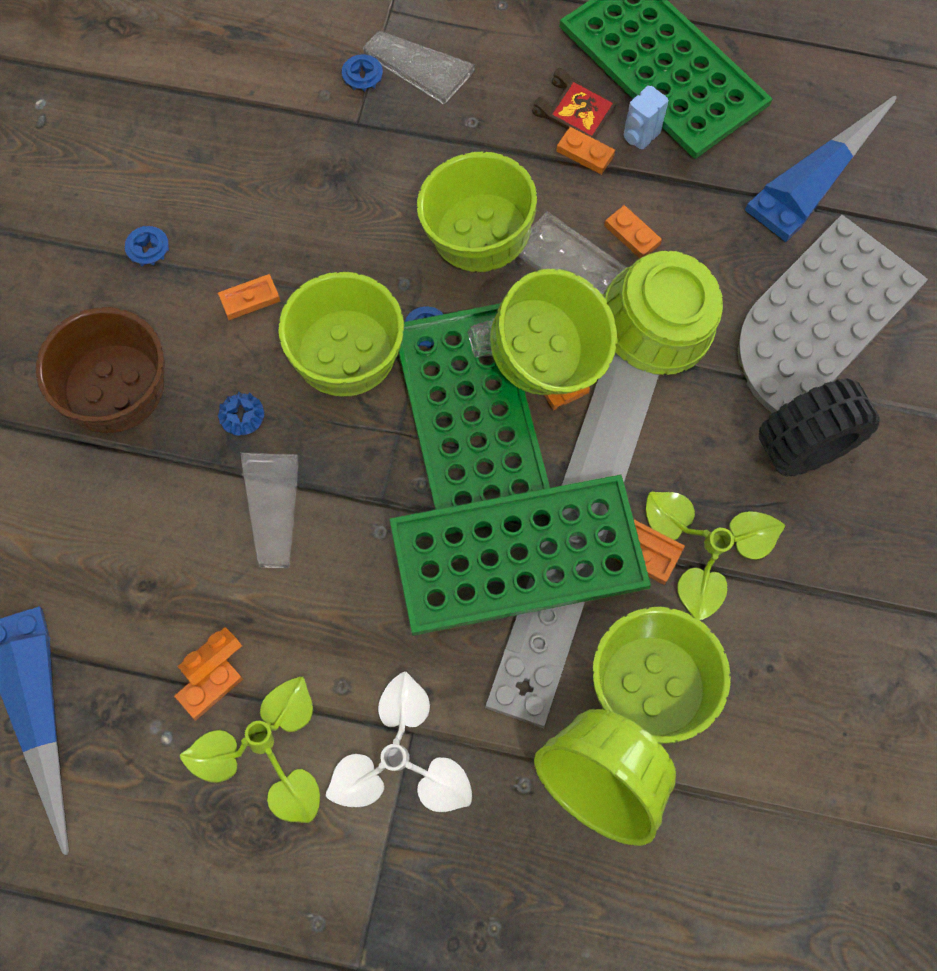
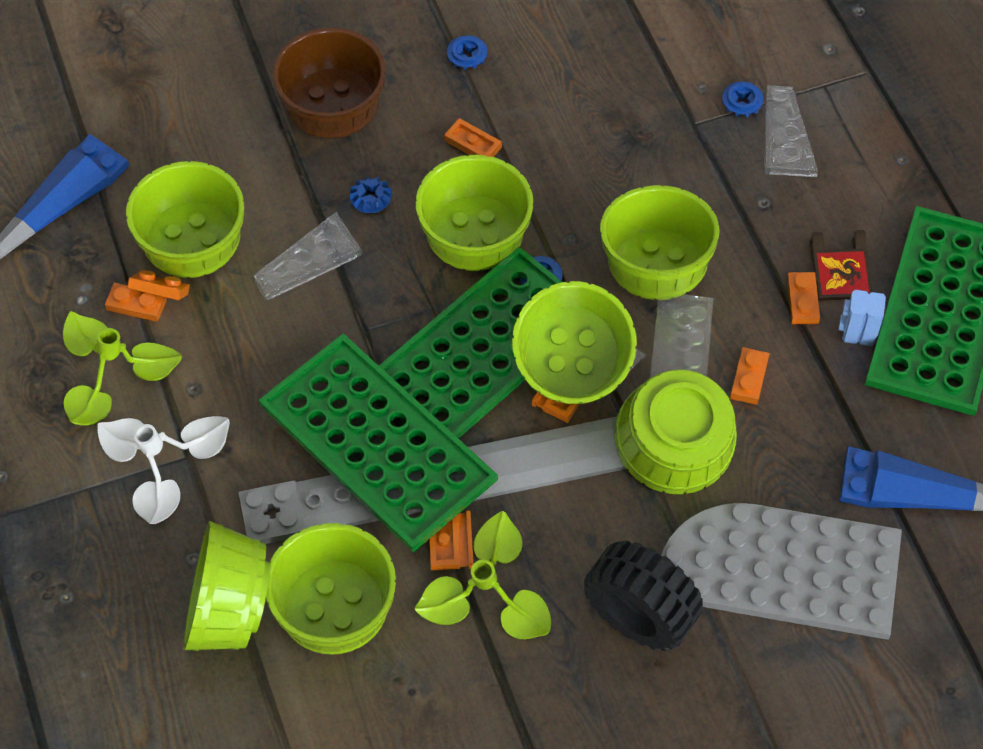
camera: 60 degrees right, 10 degrees down
(163, 583) = (186, 218): none -> lime piece

